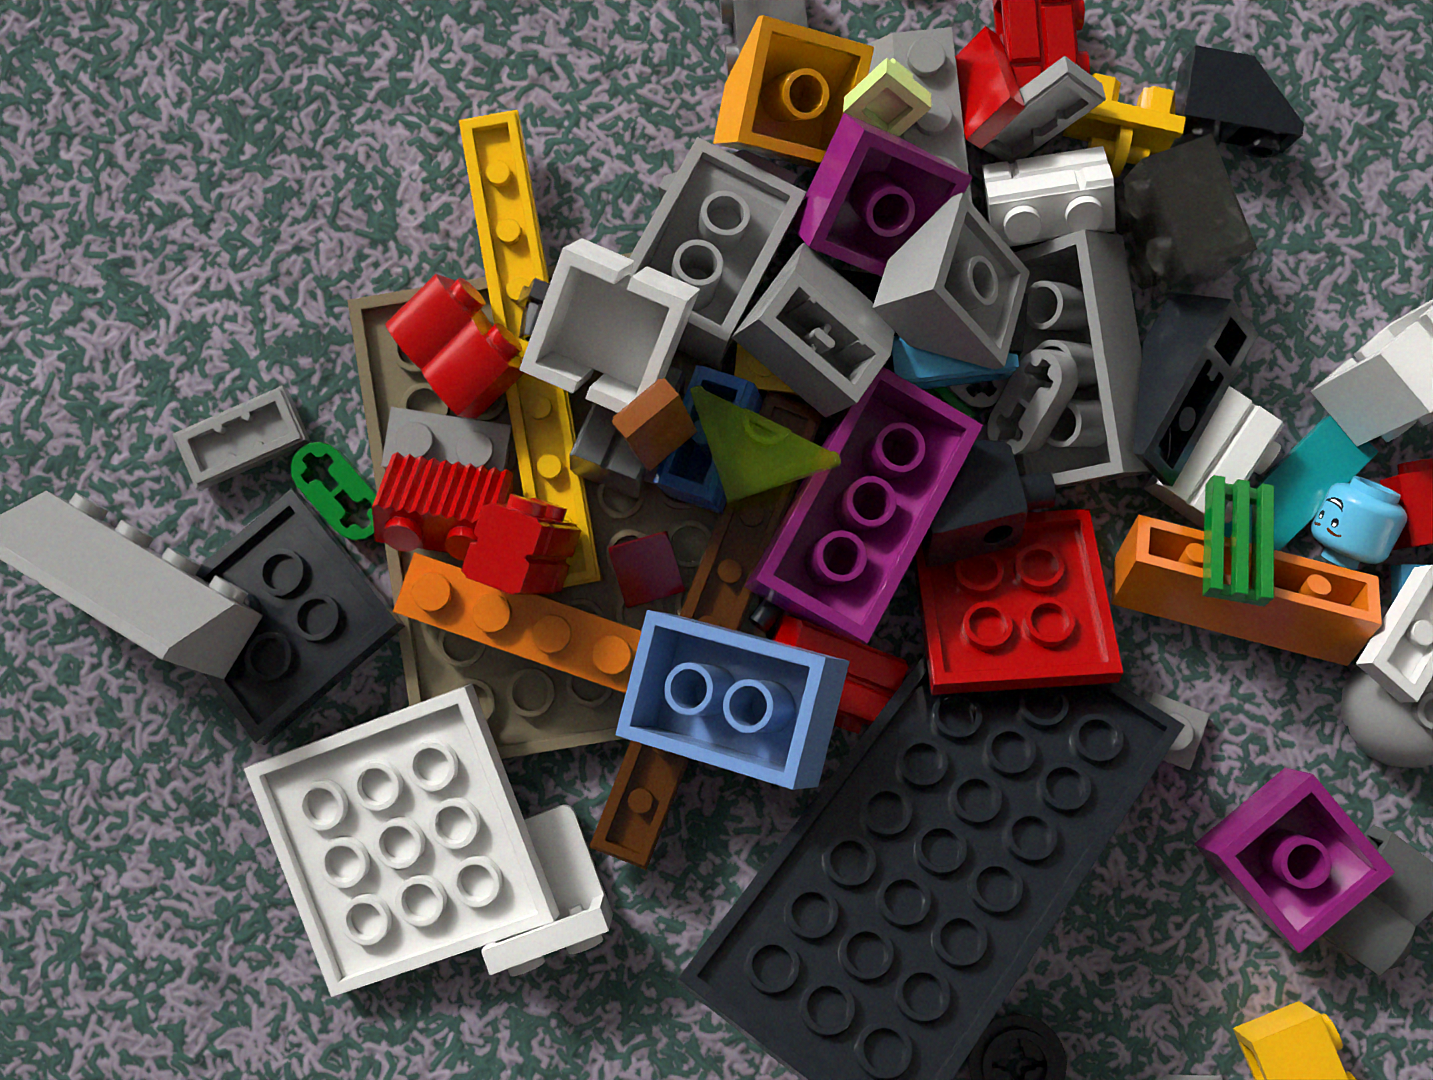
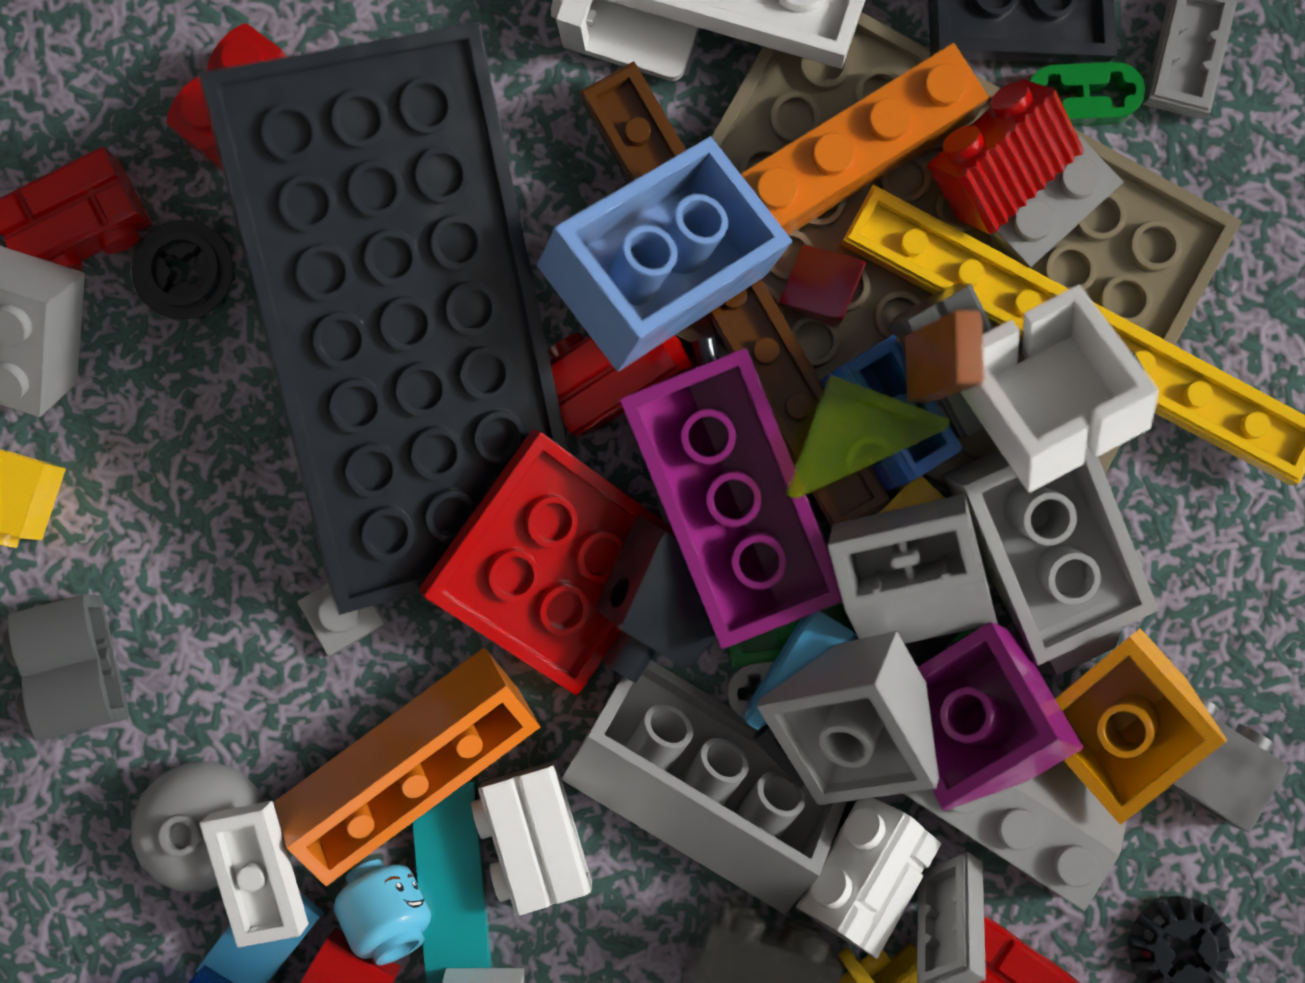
camera: 120 degrees right, 0 degrees up
(456, 345) = (1137, 268): red brick -> none
(522, 547) = (924, 182): red brick -> none
(888, 98) = (1065, 799): yellowish green tile -> none
(986, 88) = (1007, 897): red tile -> none
(1029, 400) = (705, 717): light grey beam -> none
(1184, 375) = (622, 861): black slope -> none
(1262, 541) = (487, 823): green tile -> none
(1294, 857) = (157, 622): magenta slope -> none

